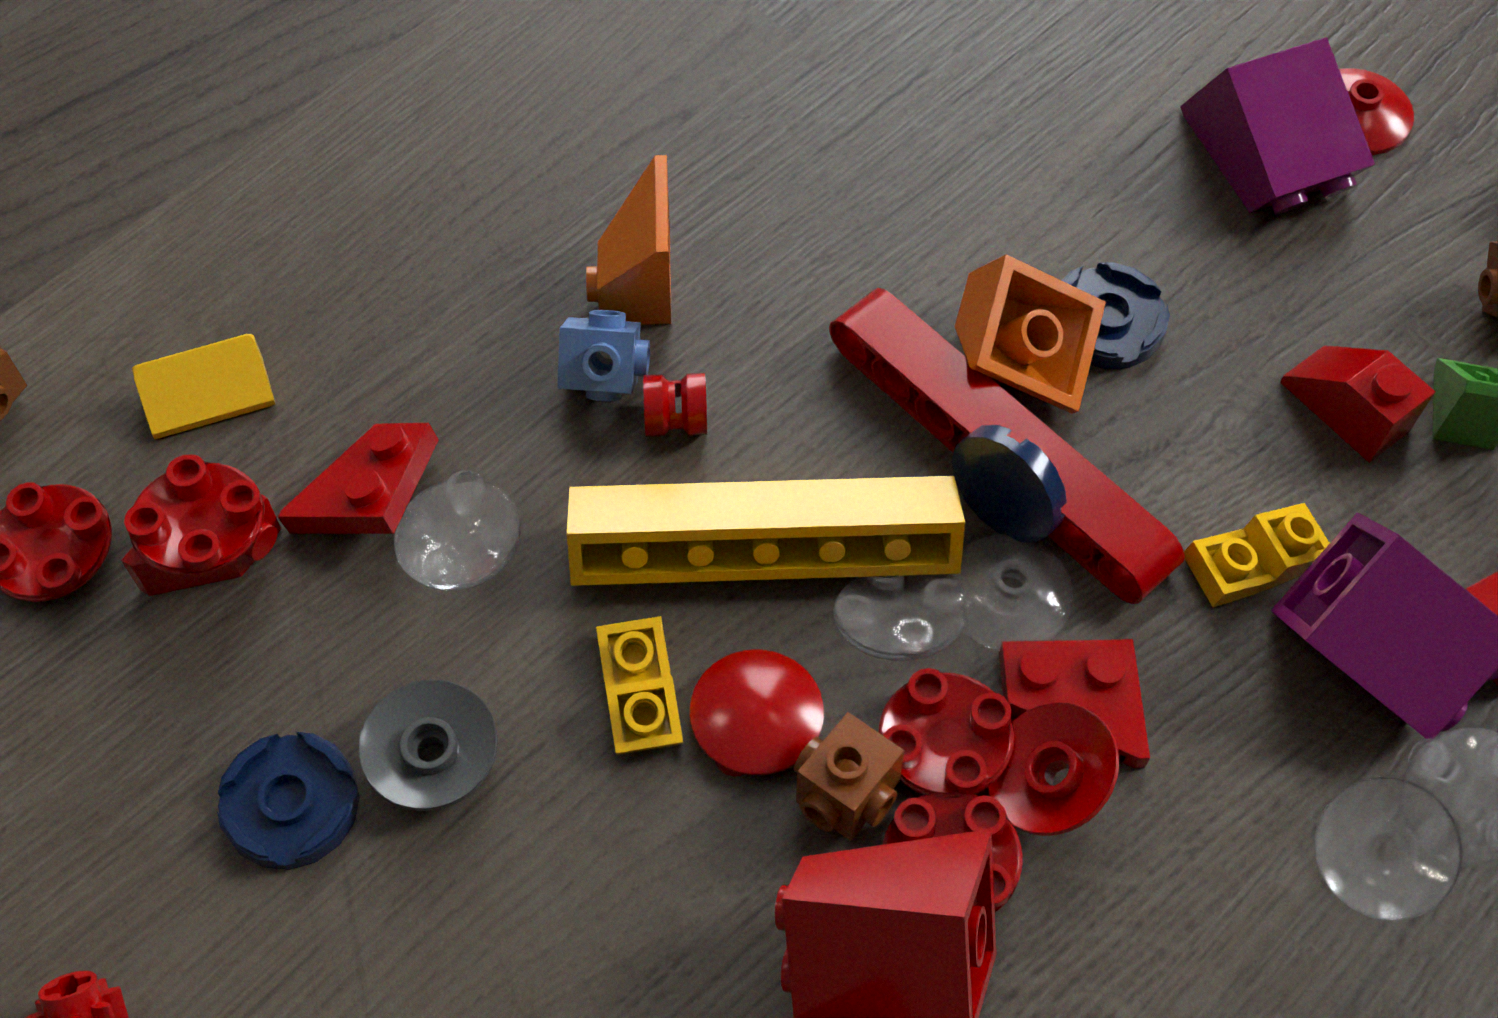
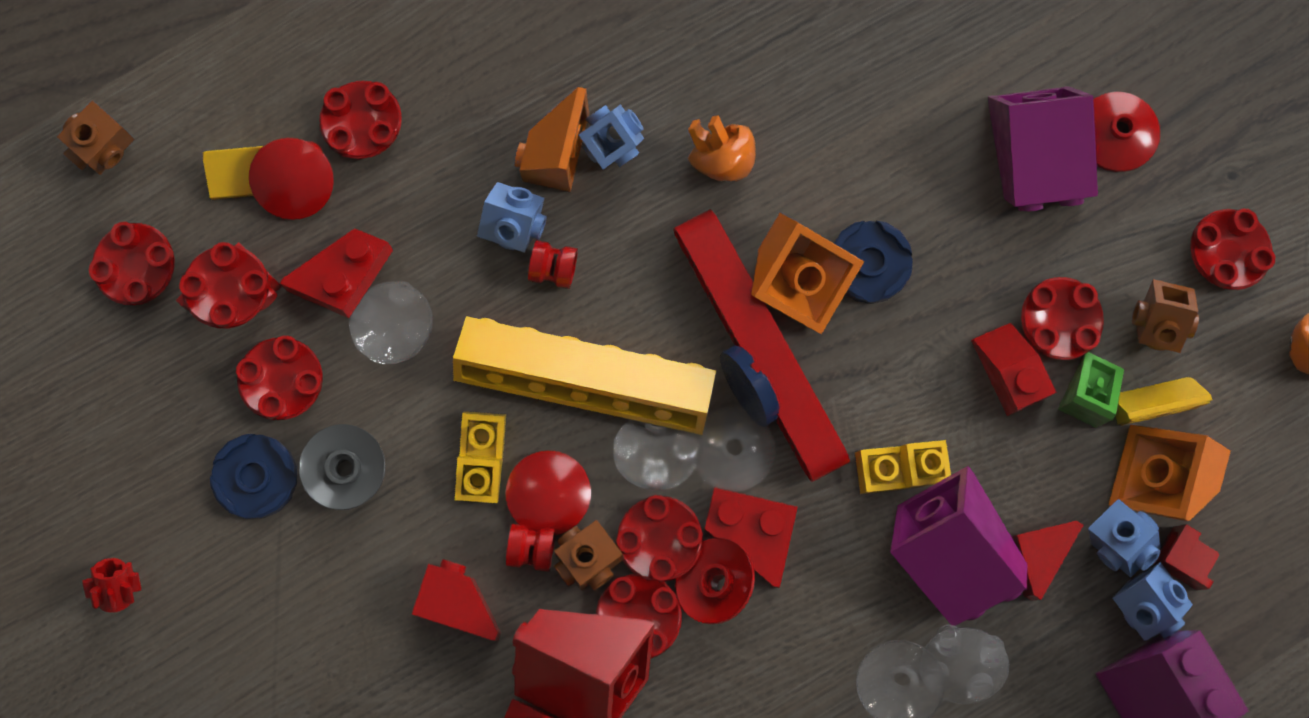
camera: 15 degrees right, 20 degrees up
(269, 376) = (291, 178): none -> red dish
(302, 646) = (279, 378): none -> red dish
(353, 291) = (360, 119): none -> red dish
(660, 904) = (455, 601): none -> red slope
(710, 210) = (600, 145): none -> medium blue brick
(738, 791) = (520, 547): none -> red wheel
(871, 226) = (724, 153): none -> orange piece
(1394, 317) = (1062, 318): none -> red dish

